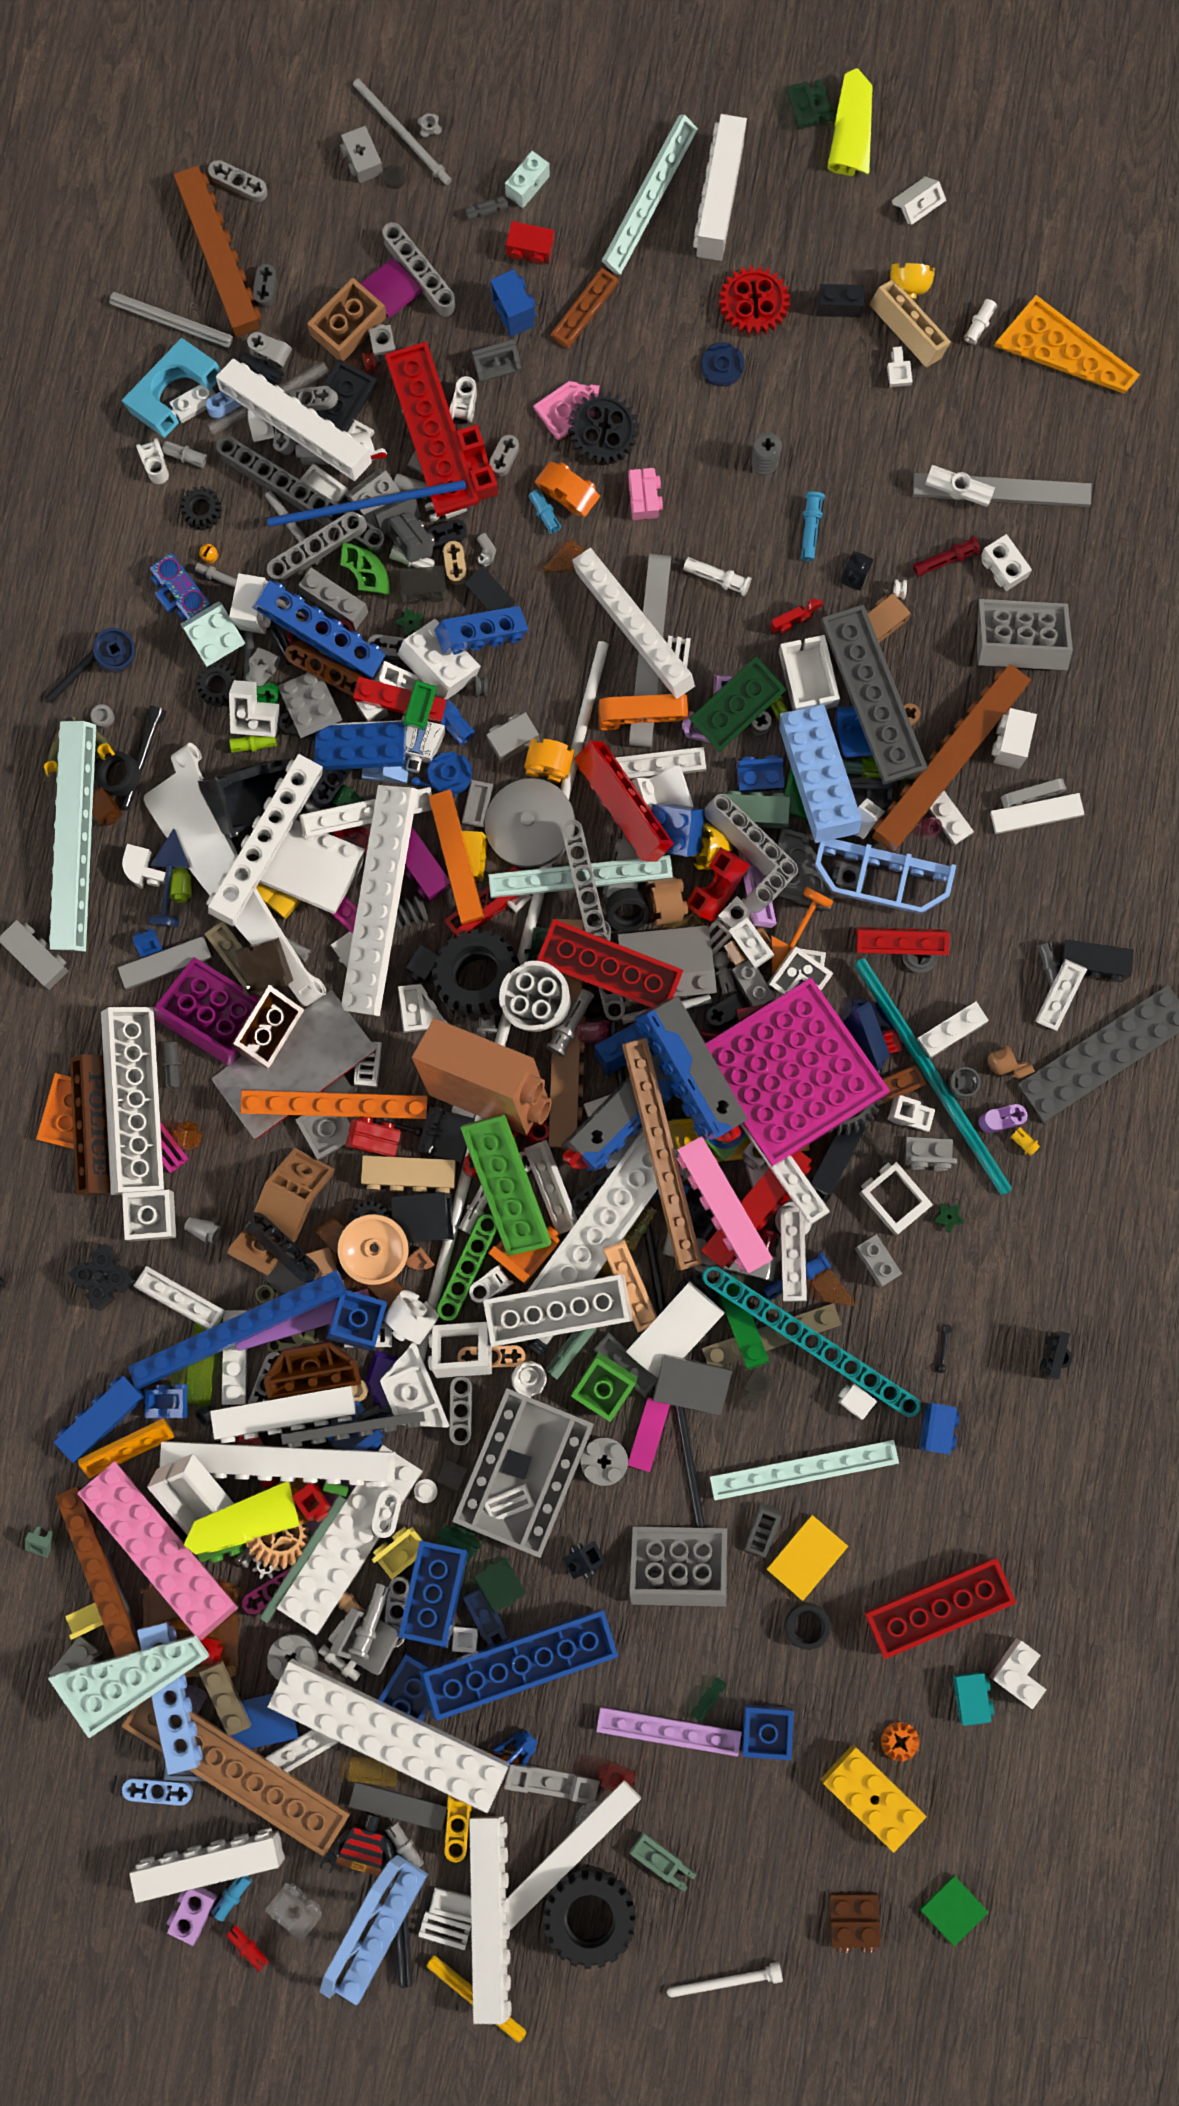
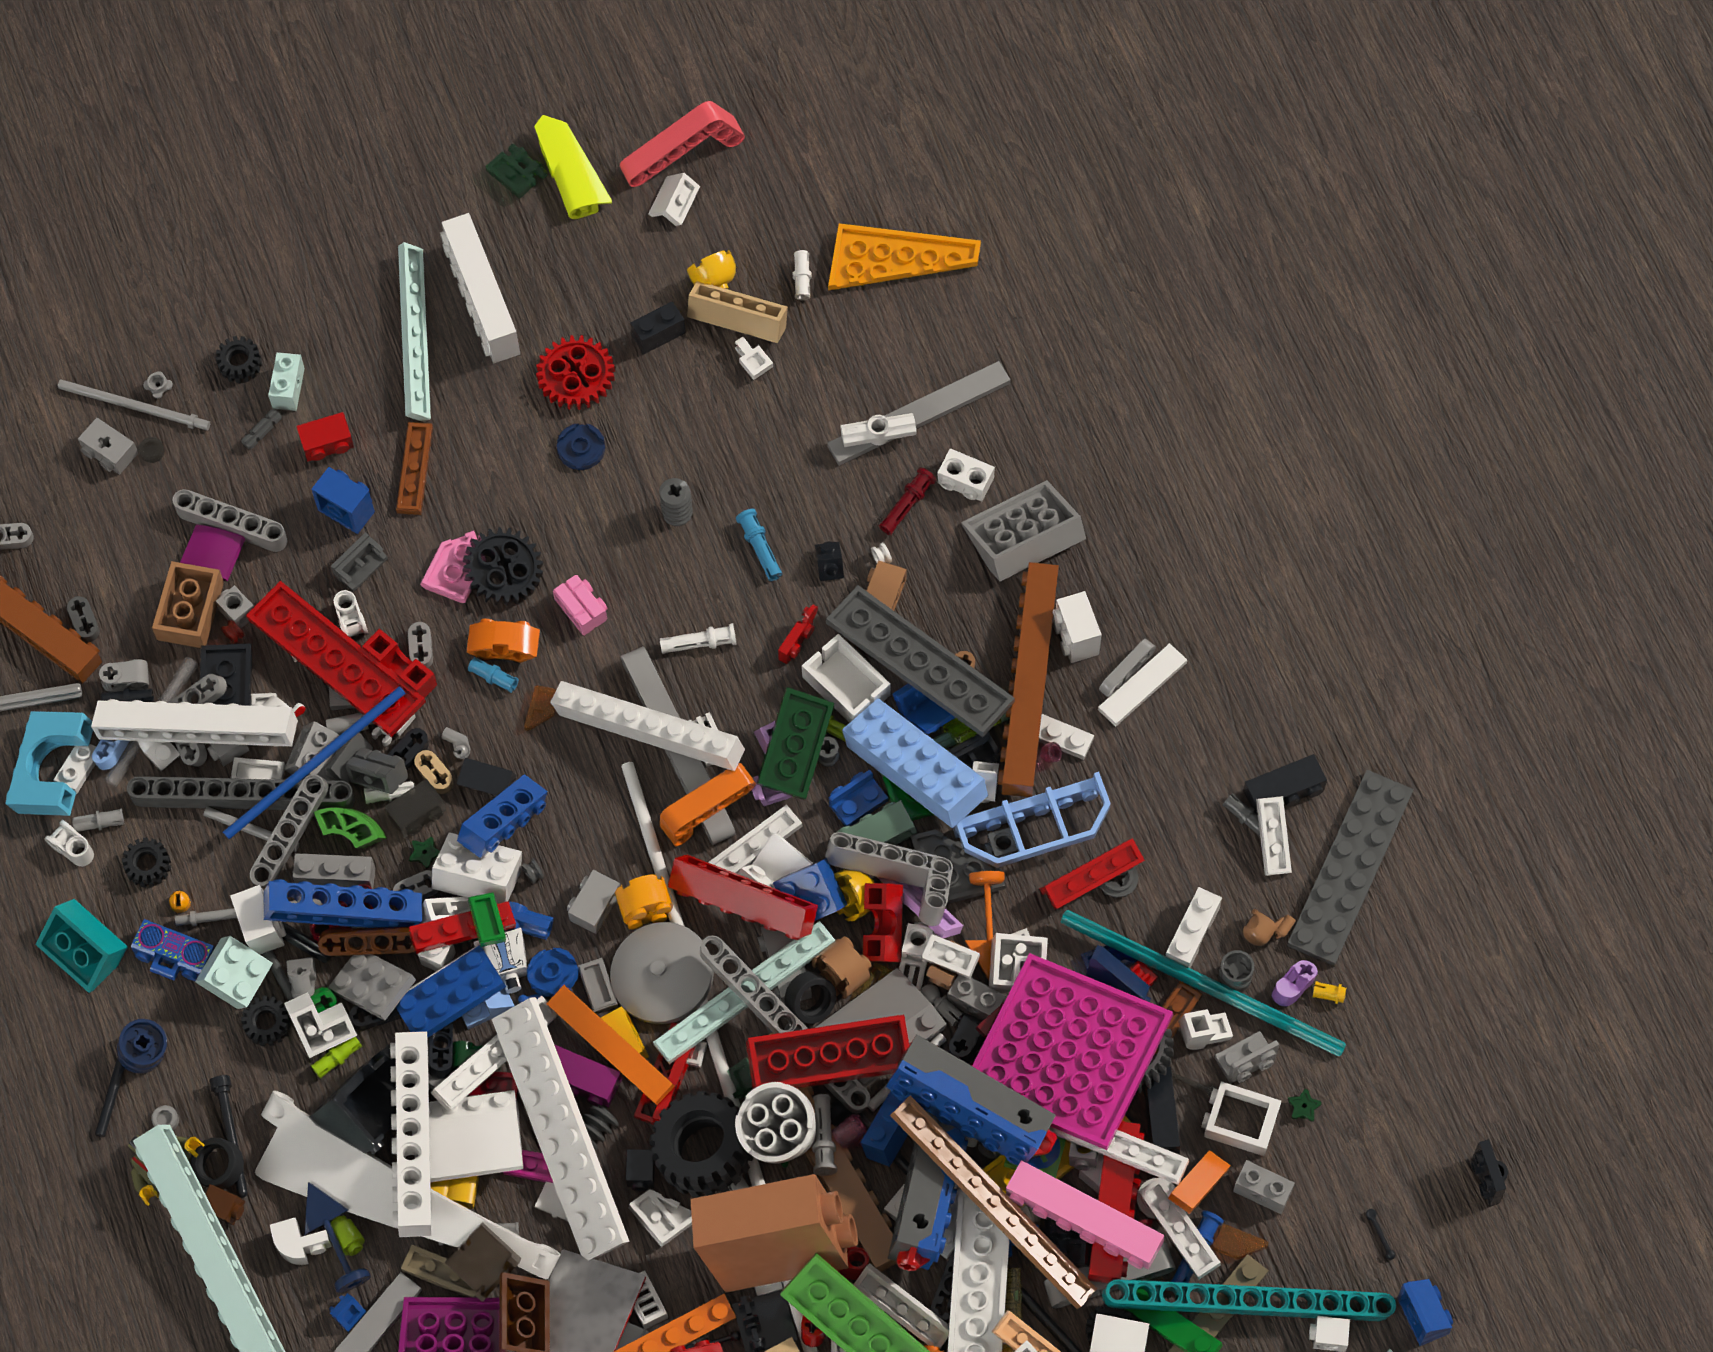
camera: 30 degrees left, 15 degrees down
(116, 544) = (80, 944): none -> teal slope
(502, 128) = (236, 347): none -> black tyre
(831, 1228) = (1199, 1182): none -> orange tile
(953, 149) = (678, 139): none -> coral beam

